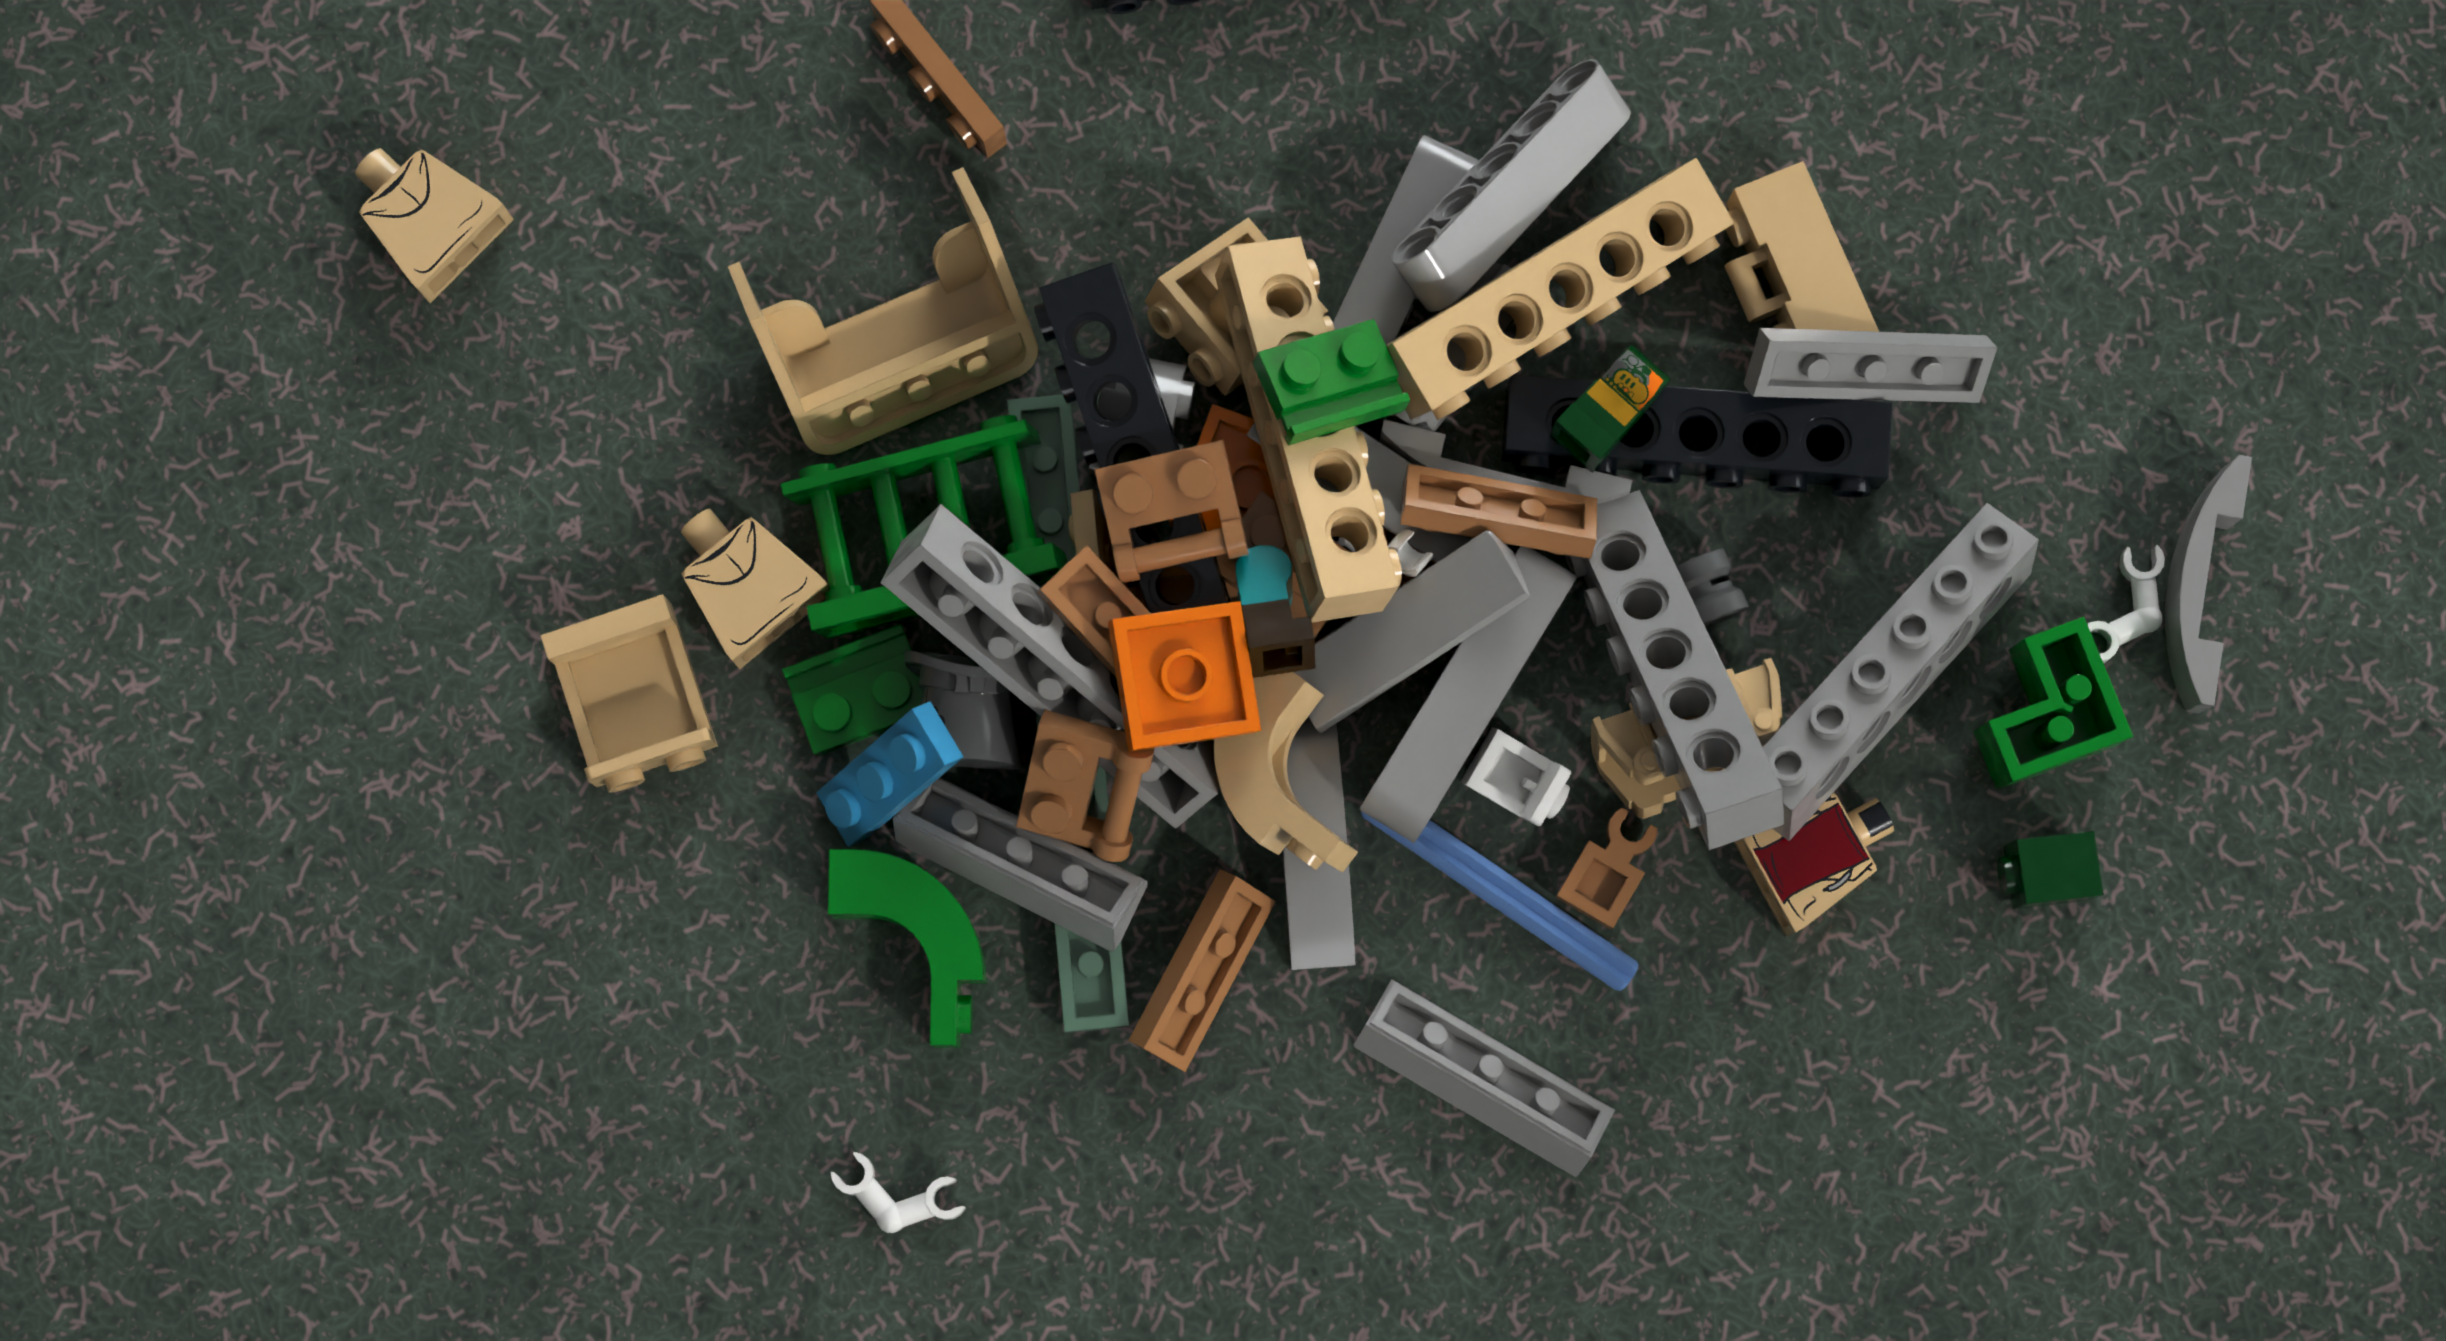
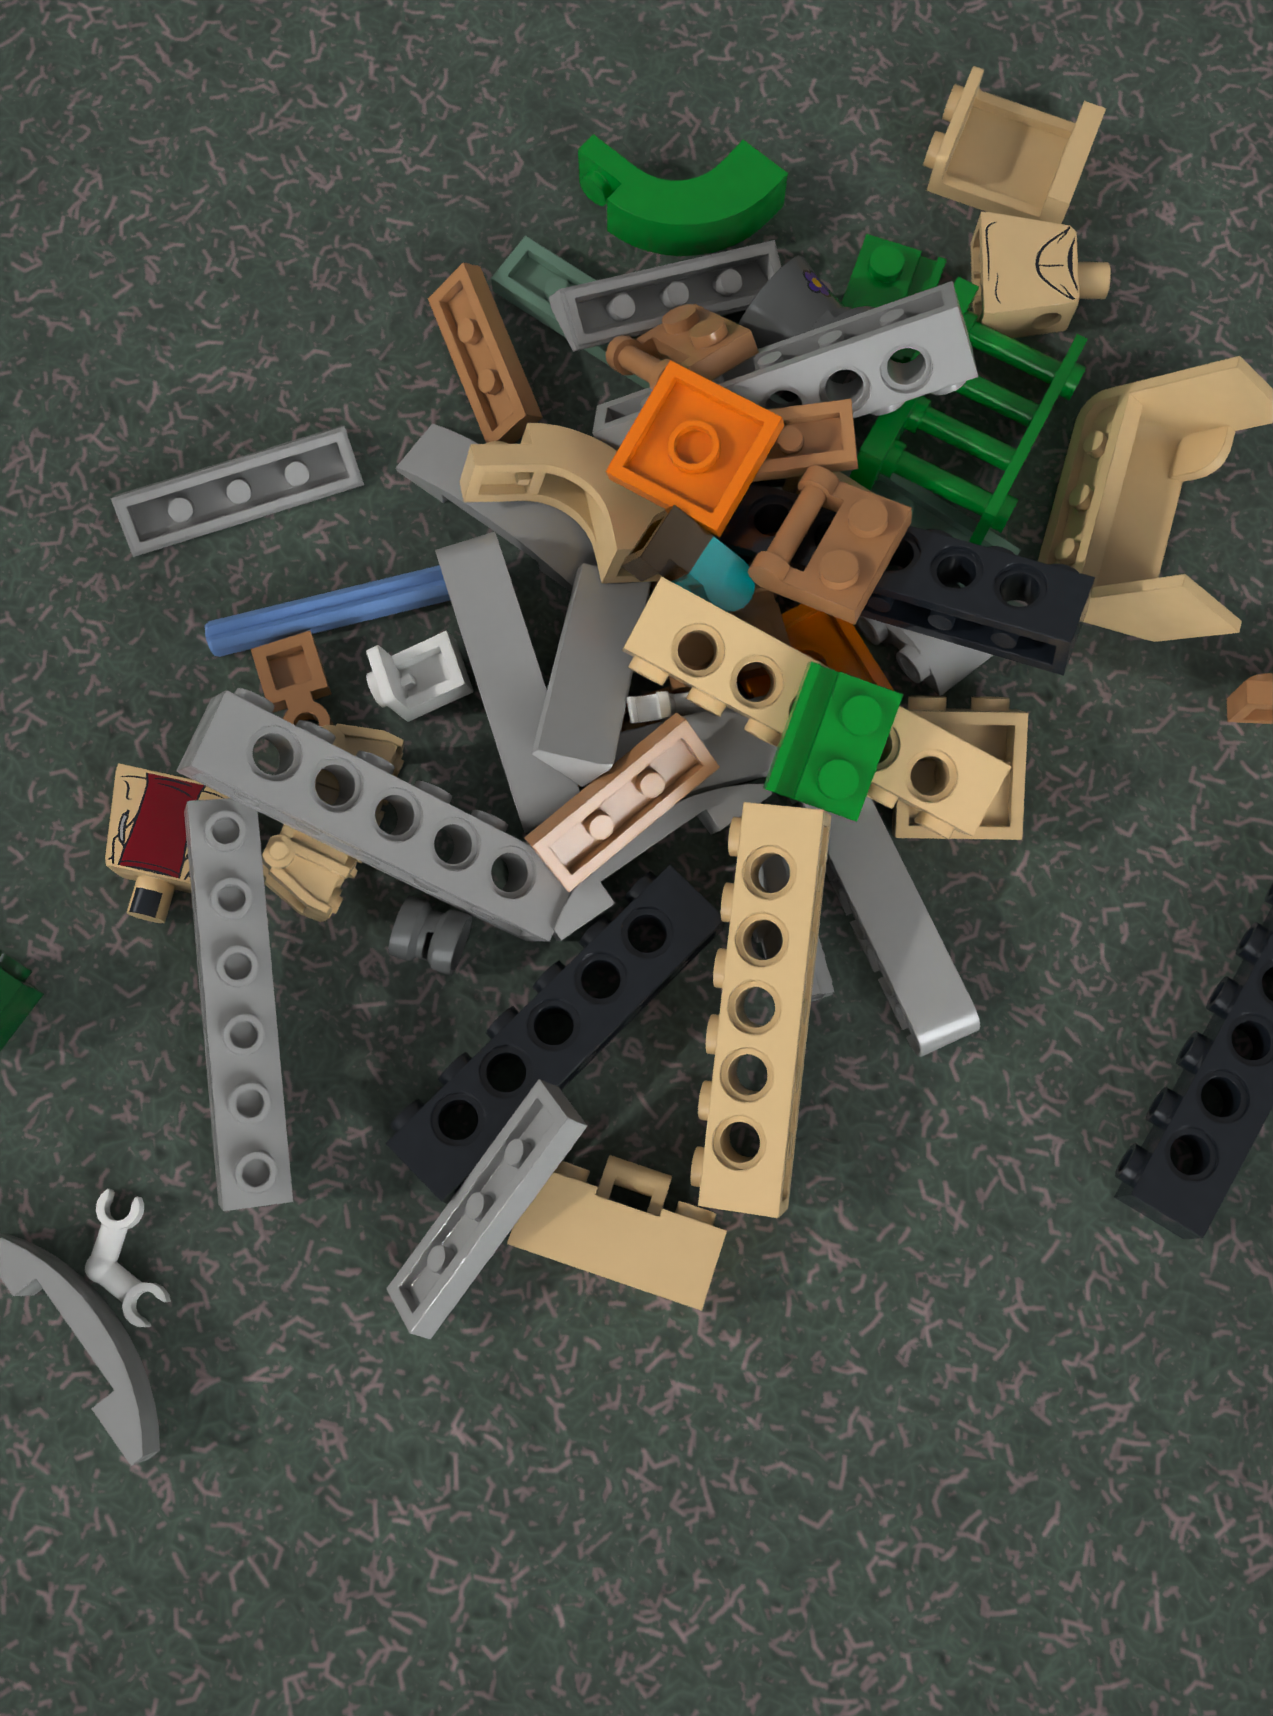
camera: 130 degrees right, 5 degrees down
(889, 774) = (806, 237): dark azure plate -> none
(893, 1215) = (519, 53): white arm -> none
(1510, 185) = (880, 1052): light grey beam -> none
(1609, 408) = (630, 960): dark green leg -> none
(2069, 710) = (77, 1115): green brick -> none

